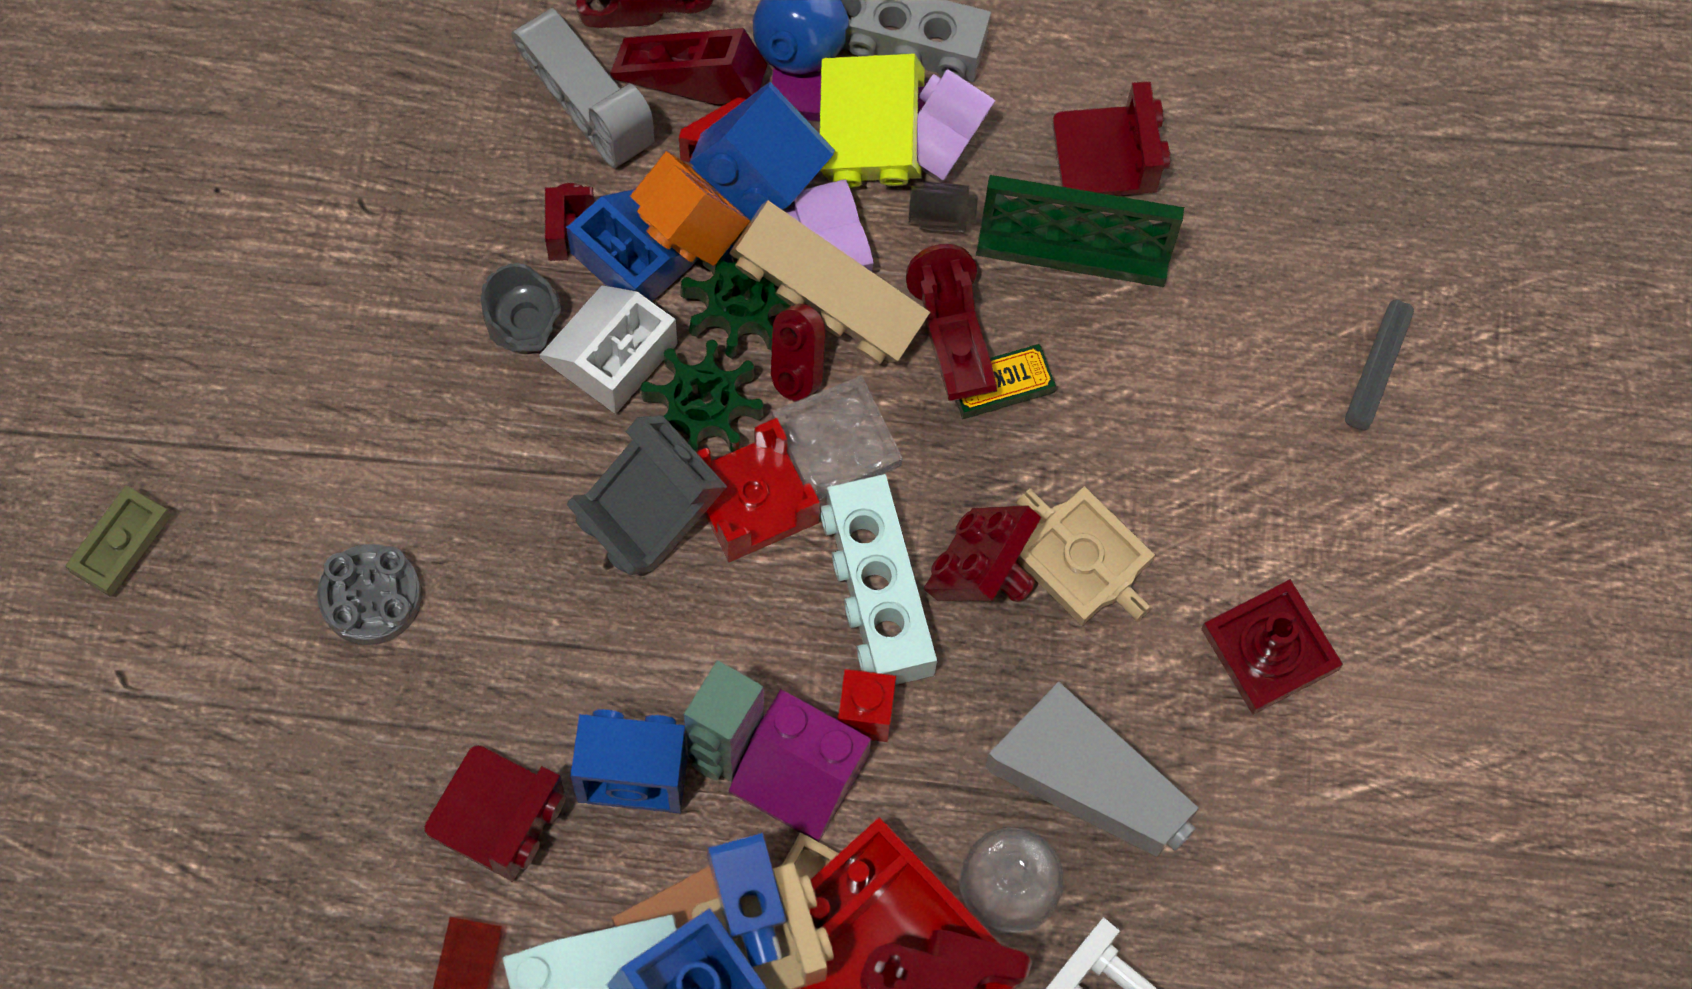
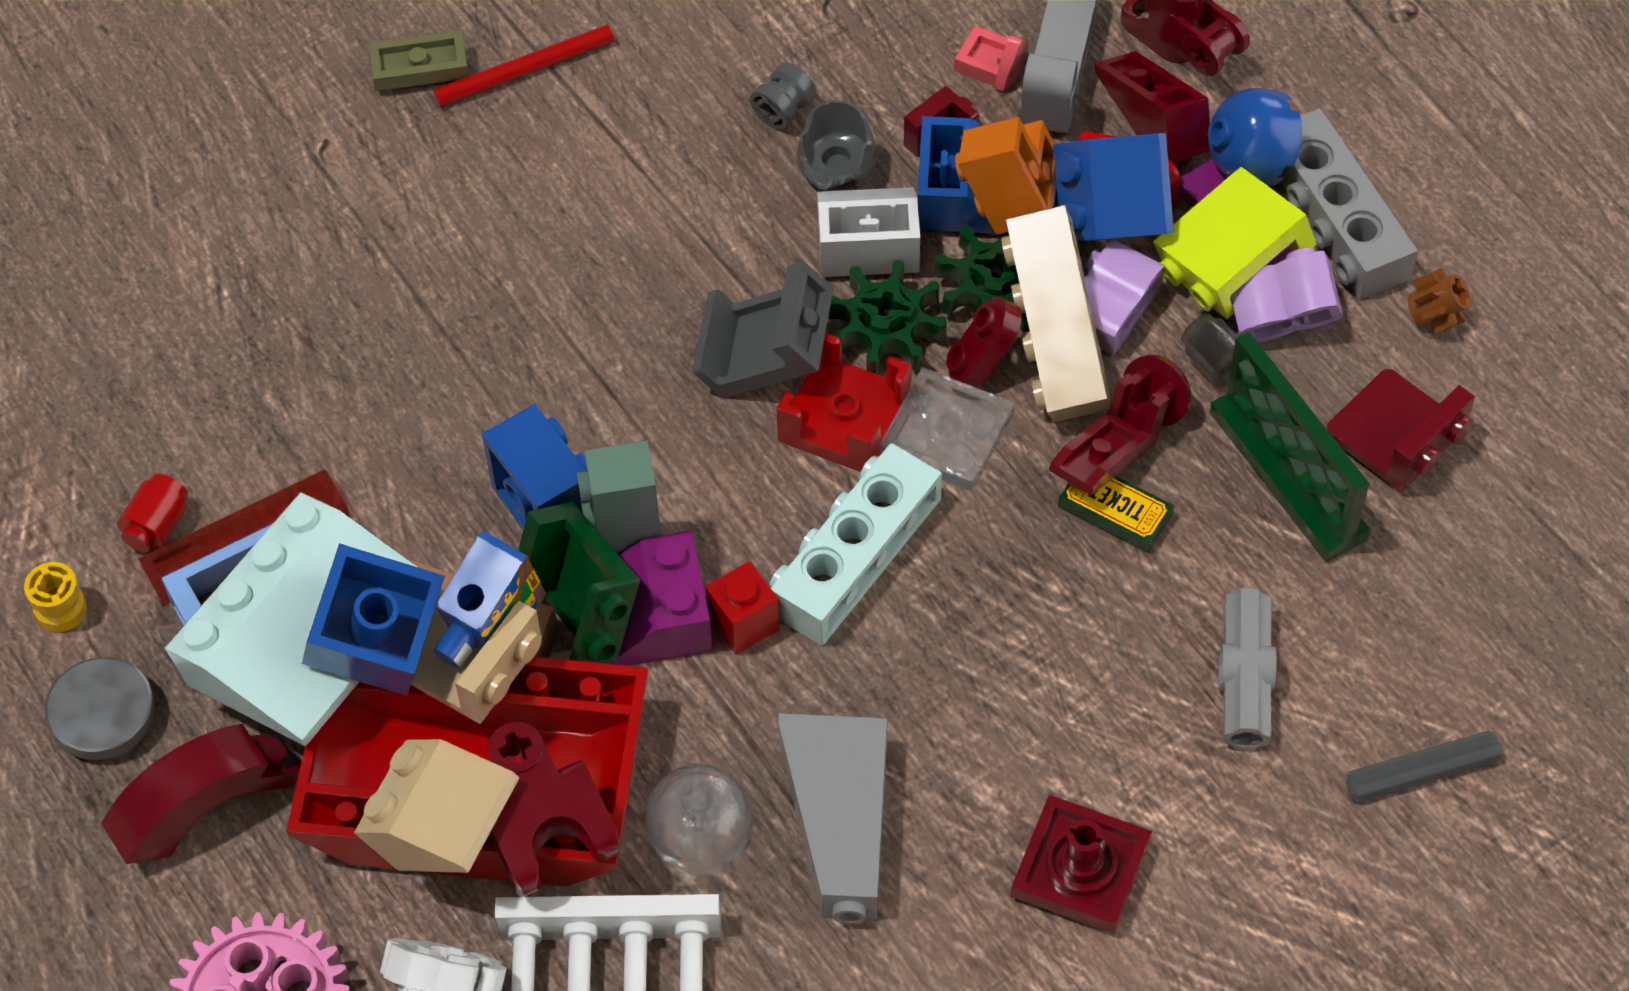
camera: 55 degrees right, 10 degrees down
(200, 467) = (523, 65): none -> red bar
(369, 593) = (525, 235): flat silver tile -> none
(428, 304) = (785, 92): none -> dark grey wheel
(496, 811) = (430, 436): dark red bracket -> none
(534, 135) = (992, 58): none -> coral tile
(750, 797) = (581, 579): none -> dark green panel
(985, 556) = (944, 595): dark red plate -> none
(1034, 34) = (1439, 300): none -> dark orange gear
(1084, 556) = (1022, 669): tan plate -> none
(1213, 409) = (1247, 669): none -> light grey piece

